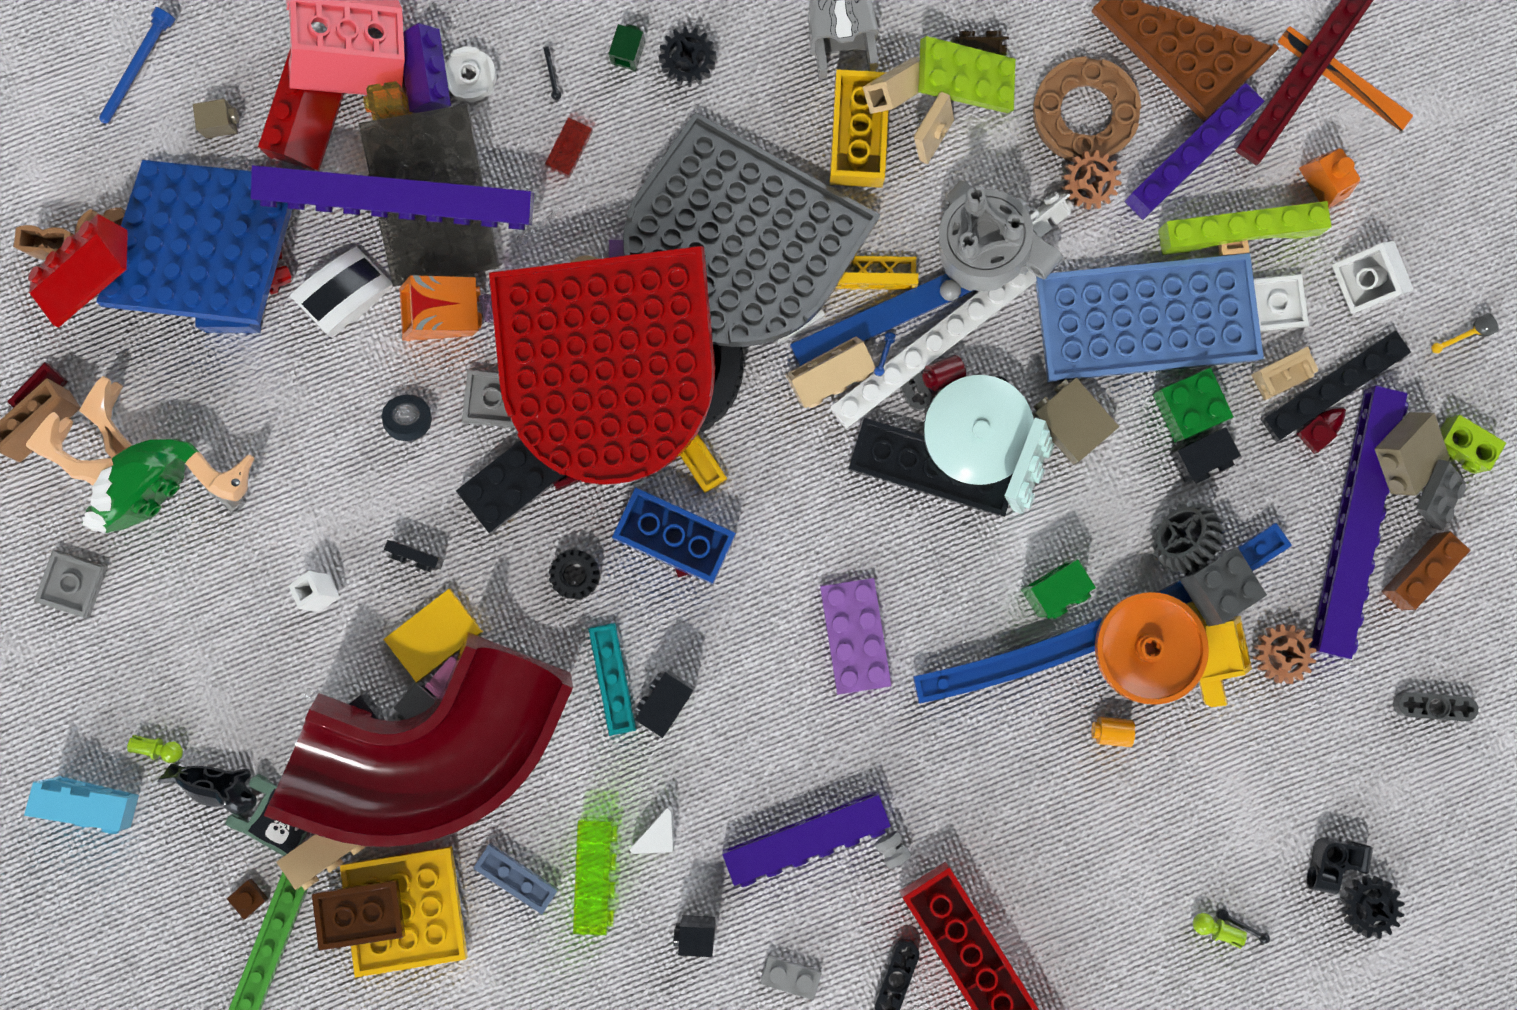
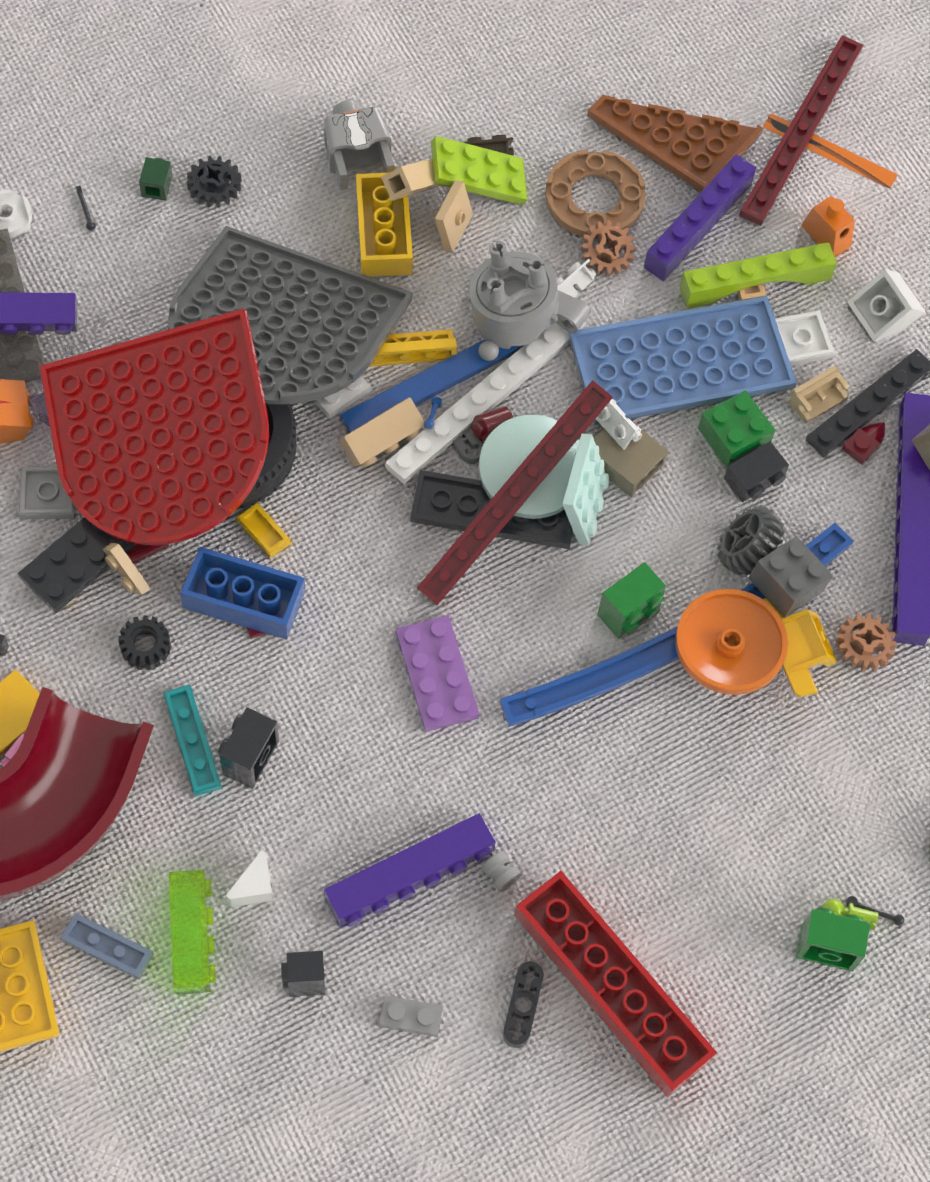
camera: 10 degrees left, 20 degrees down
(566, 508) = (118, 560): none -> tan plate
(568, 147) = (106, 267): clear red plate -> none
(960, 463) = (514, 492): none -> dark red plate
(1066, 384) = (618, 426): none -> white hinge
(1114, 731) = (709, 732): light orange brick -> none
(1200, 961) = (833, 939): none -> green brick

